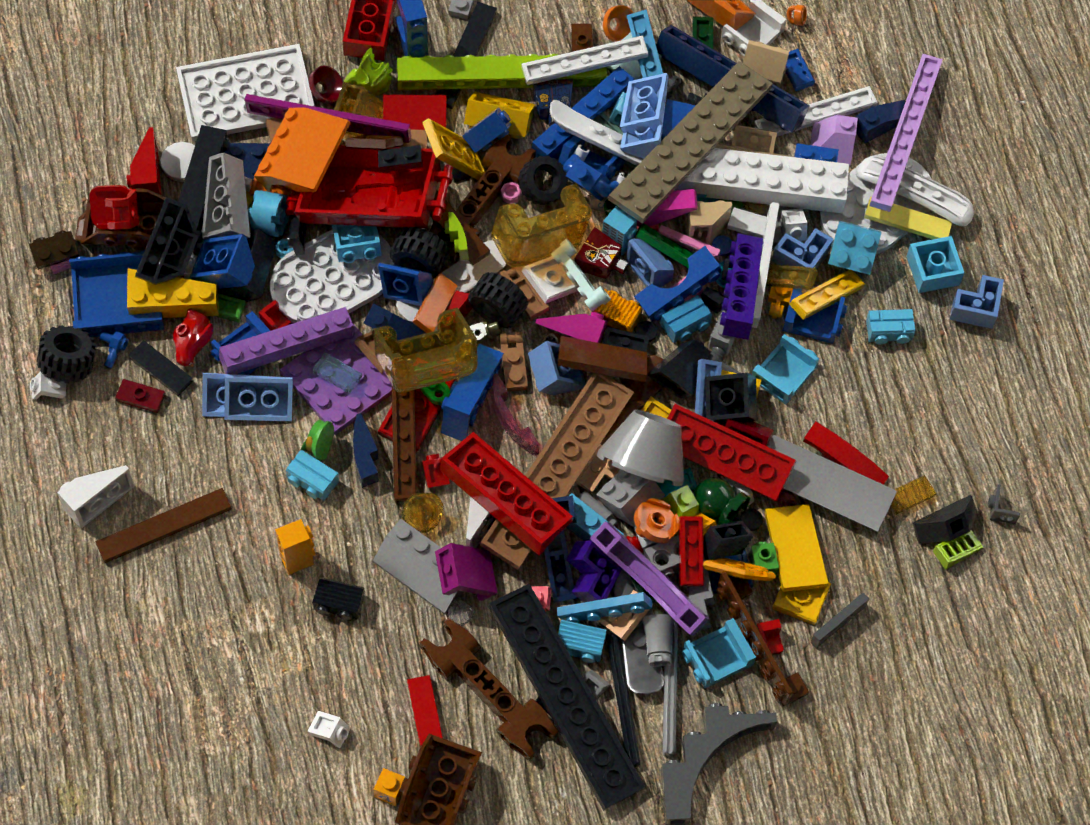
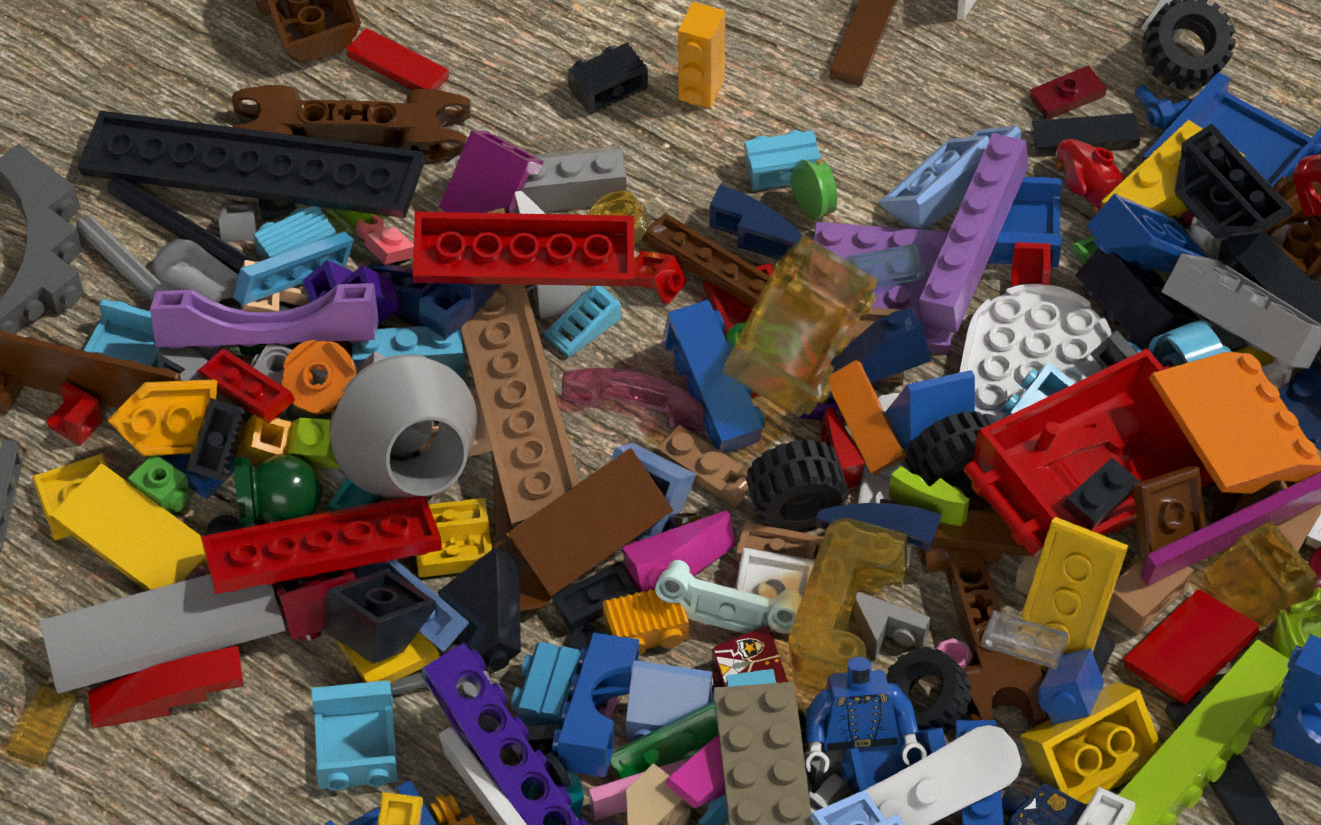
camera: 140 degrees right, 10 degrees down
(484, 158) = (1024, 639): none -> clear plate
(491, 241) = (915, 522): none -> dark blue slope

